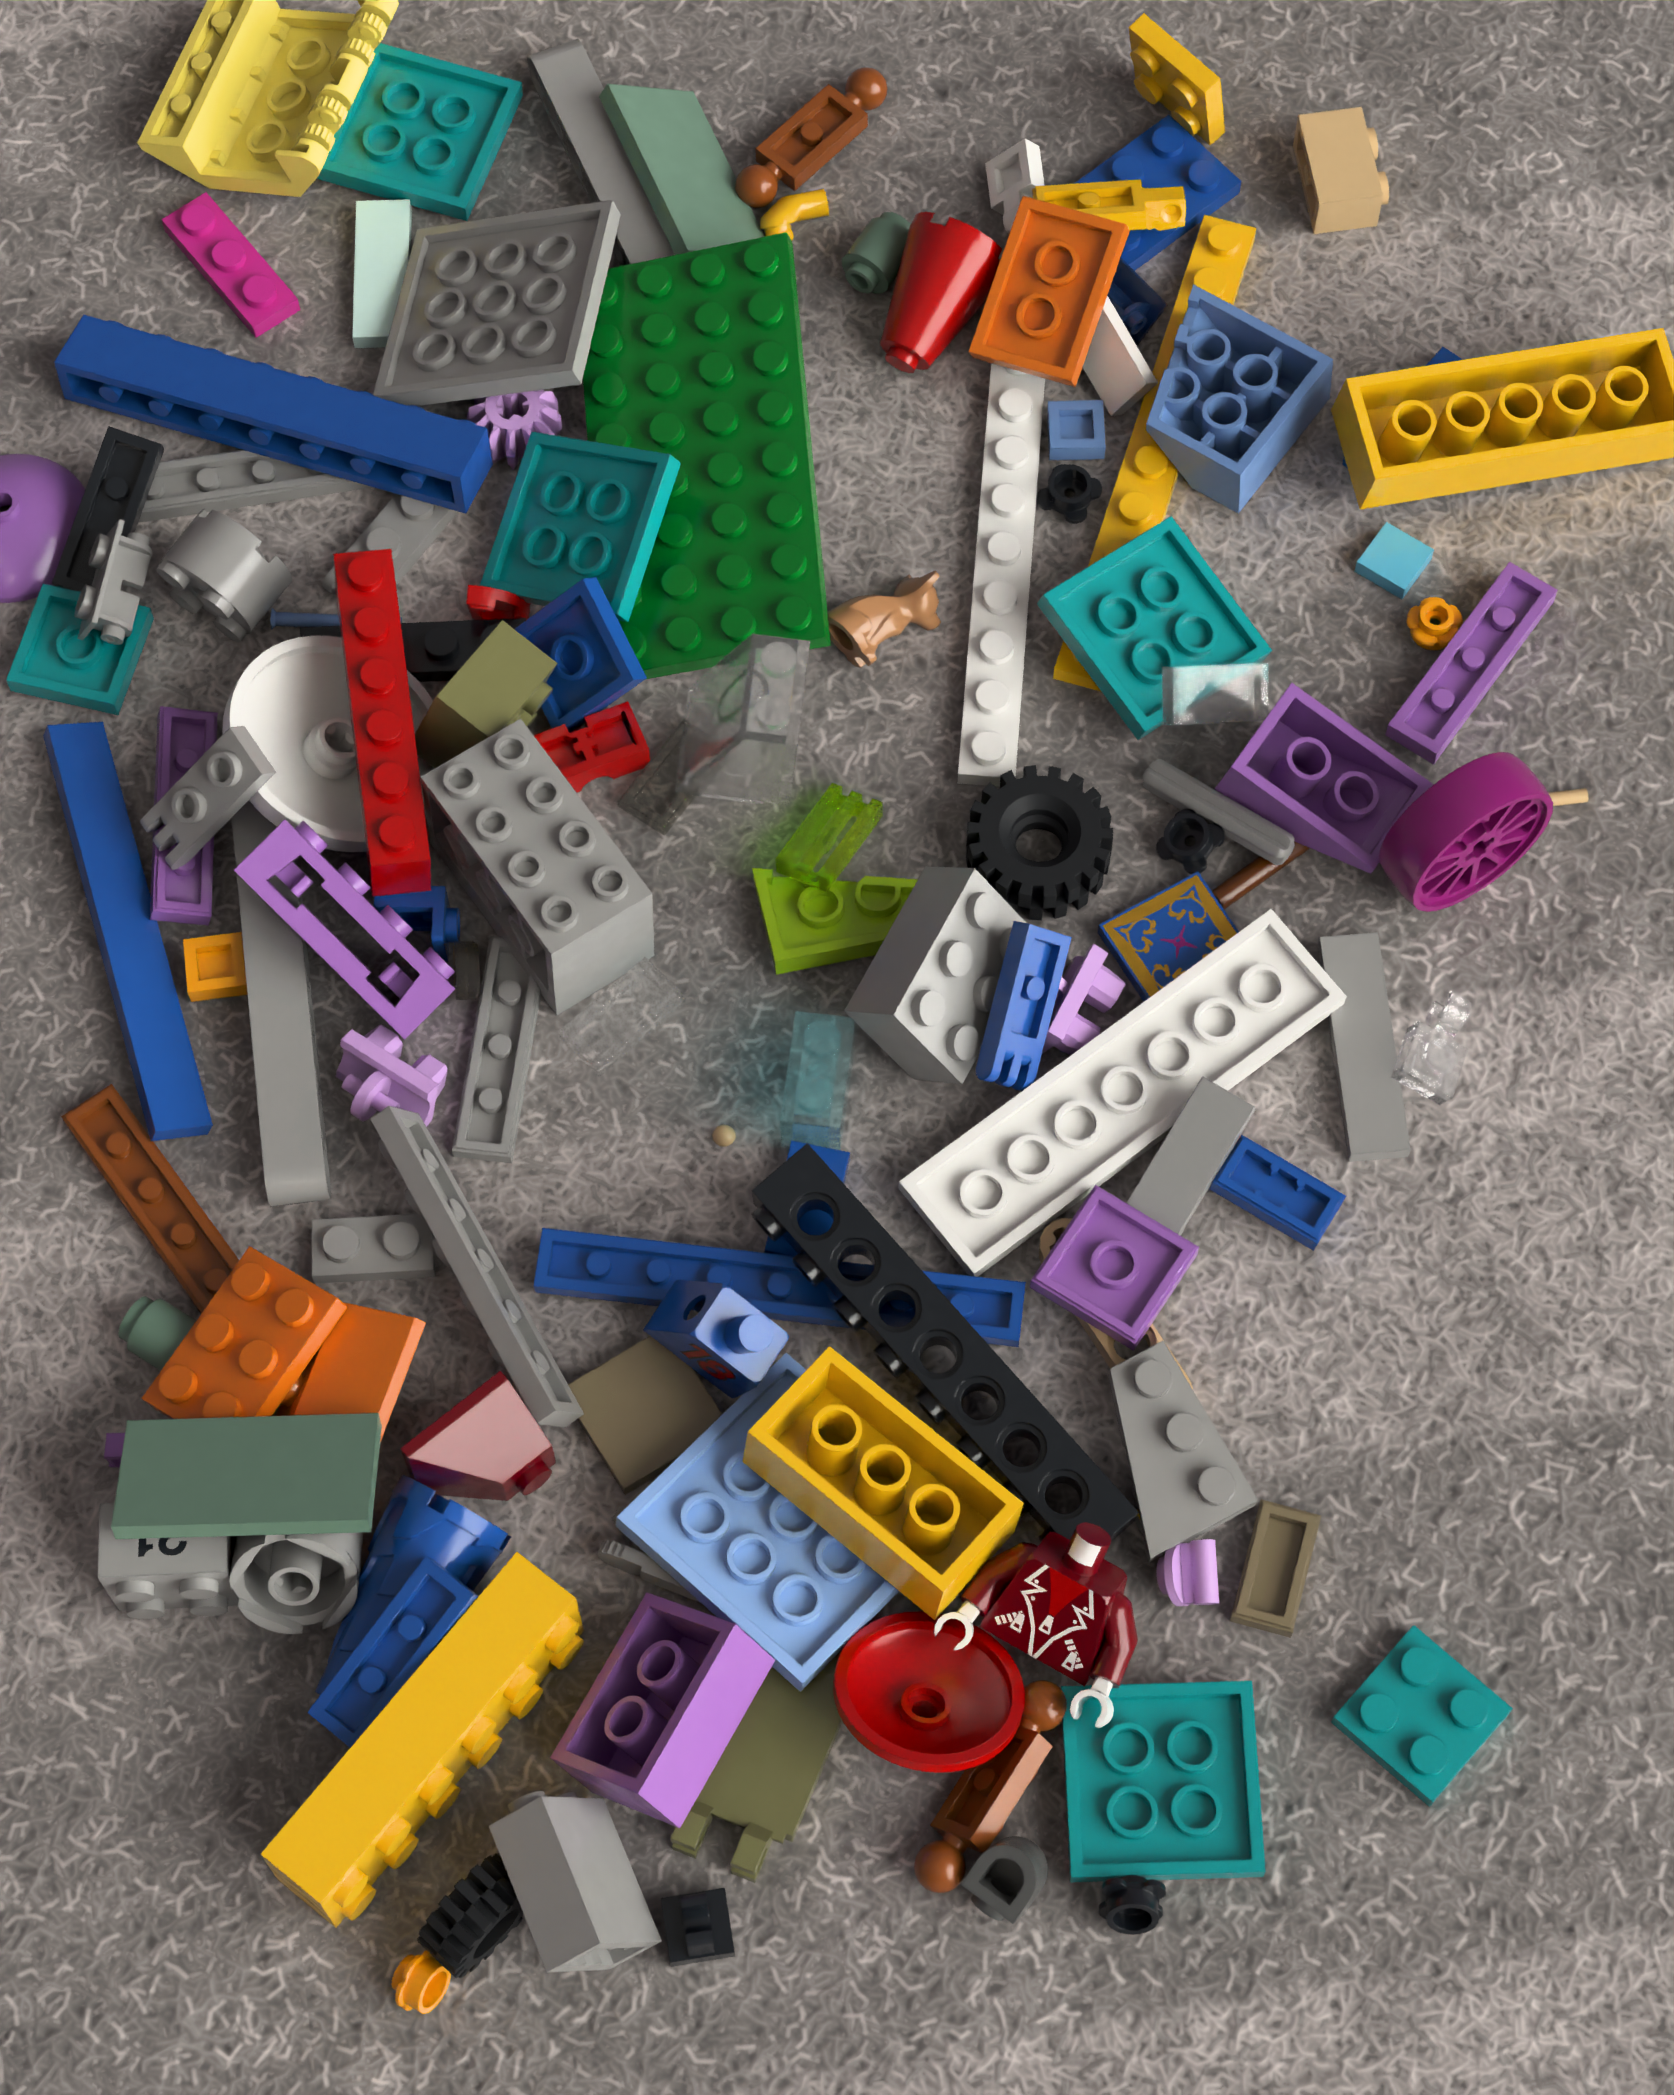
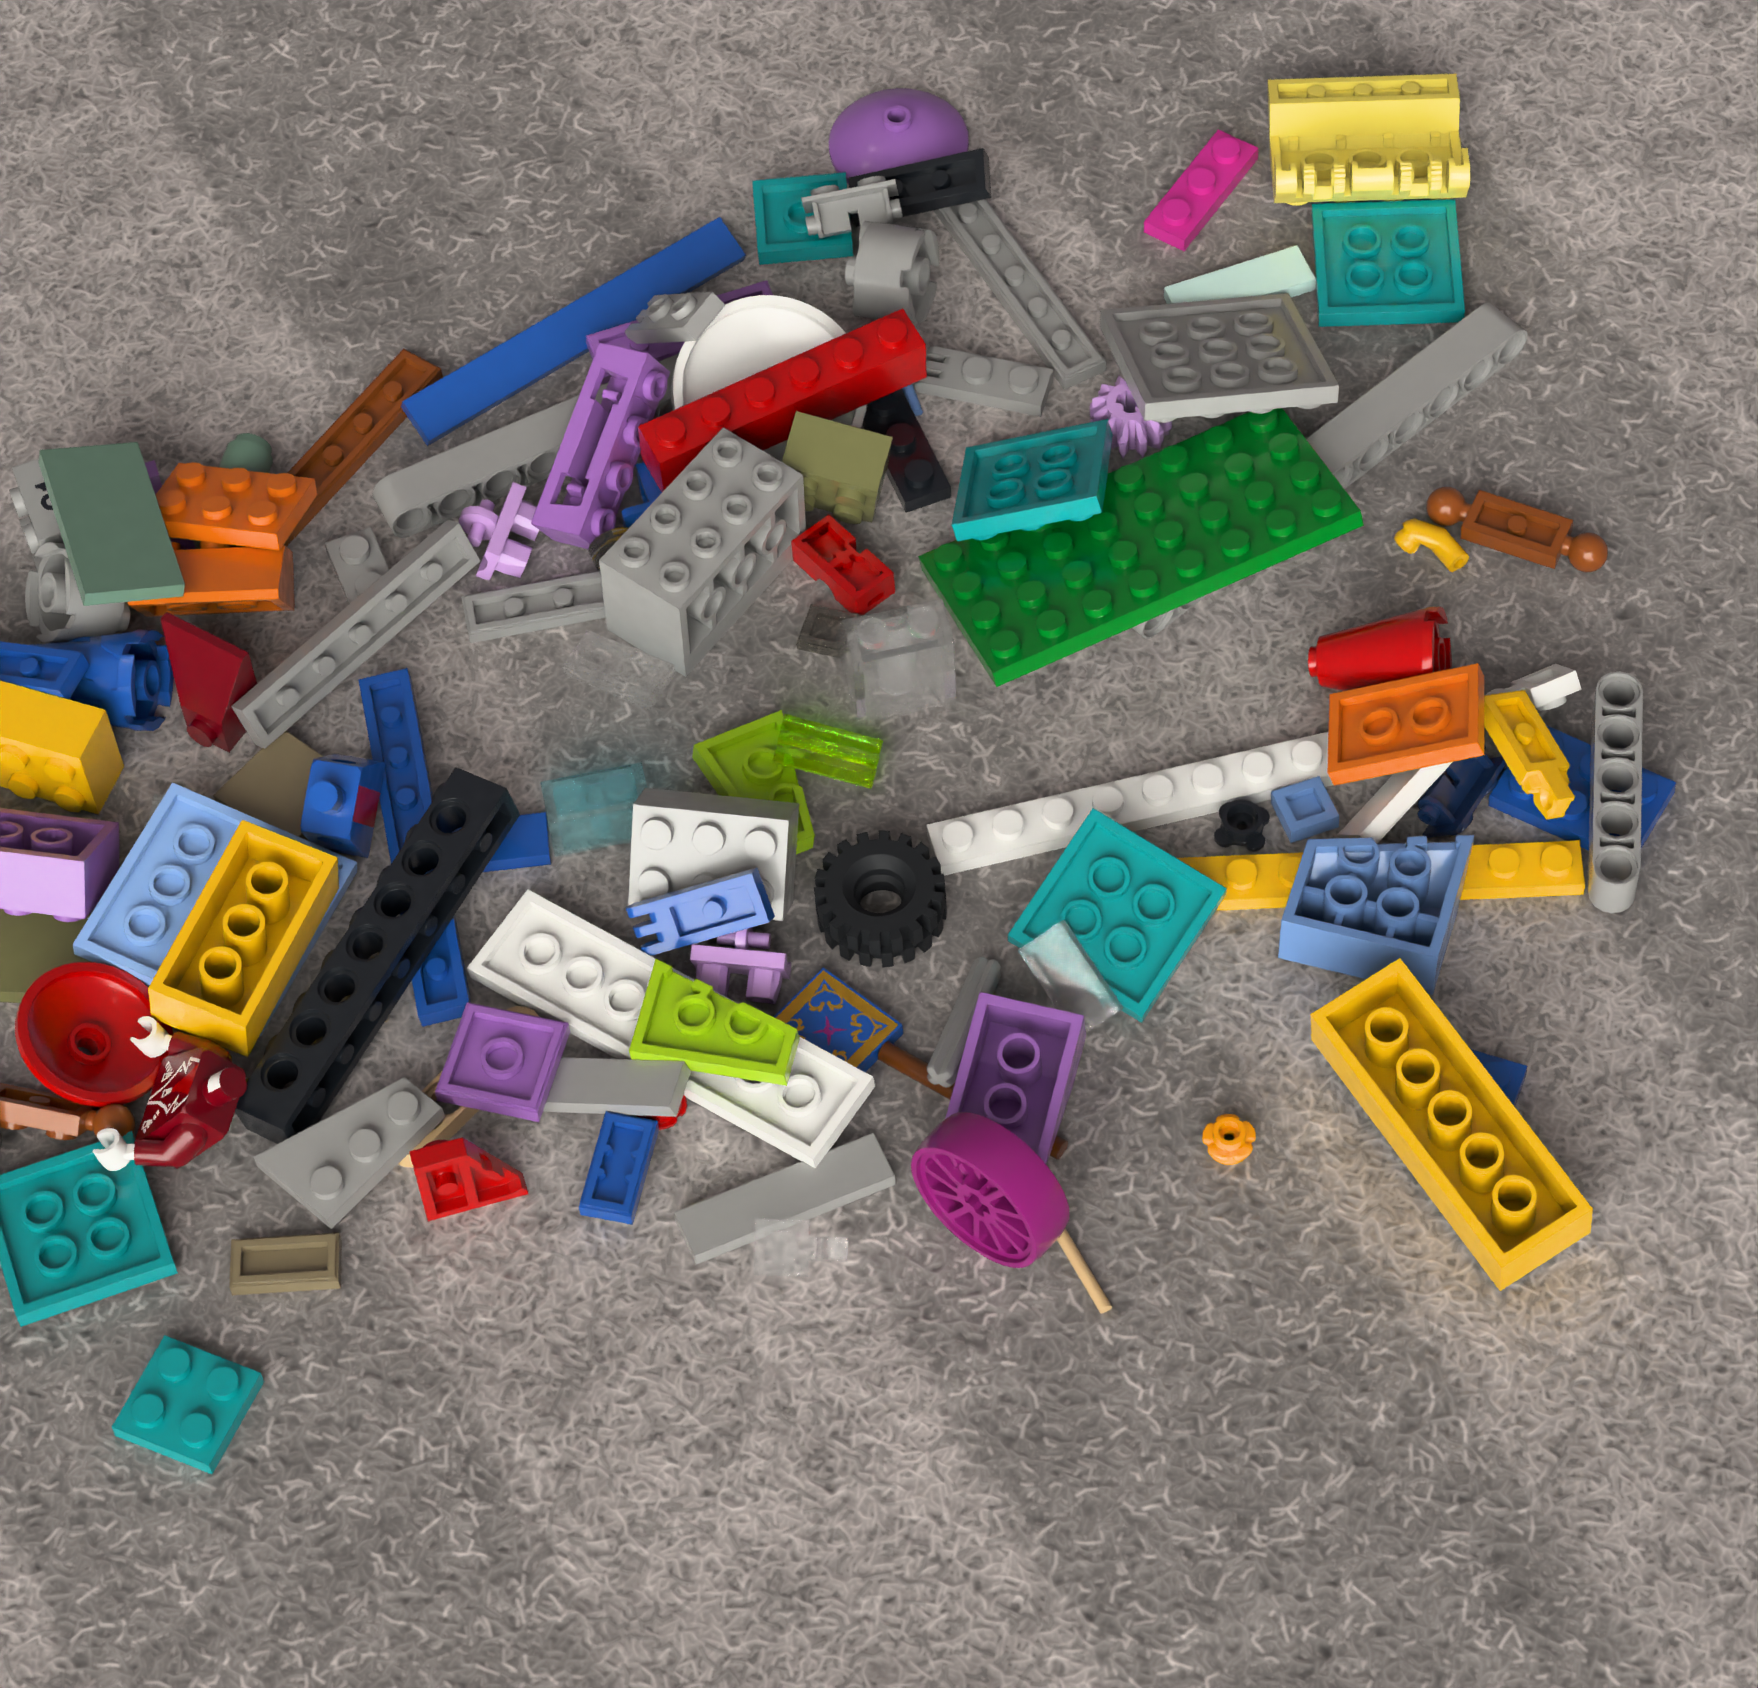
camera: 75 degrees right, 10 degrees down
(215, 966) = (555, 387): light orange plate -> none
(275, 413) = (1058, 258): blue brick -> none
(494, 603) = (949, 455): red tile -> none
(590, 650) = (911, 517): blue plate -> none
(680, 166) = (1424, 445): sand green tile -> none
(724, 1135) = (542, 773): tan piece -> none
(868, 620) = (1043, 714): medium nougat animal -> none
(876, 254) = (1412, 598): sand green brick -> none
(1169, 1044) = (711, 1032): none -> lime wing
(1176, 80) = (1695, 763): yellow plate -> none
(1179, 829) = (928, 1009): black plate -> none
(1185, 153) = (1612, 810): none -> light grey beam
(1190, 1573) = (253, 1193): lavender plate -> none
(1255, 1353) = (462, 1177): none -> red wing
(1339, 170) = (1677, 928): tan brick -> none
(1394, 560) = (1283, 1091): medium azure tile -> none
(1471, 663) = (1198, 1176): medium lavender plate -> none

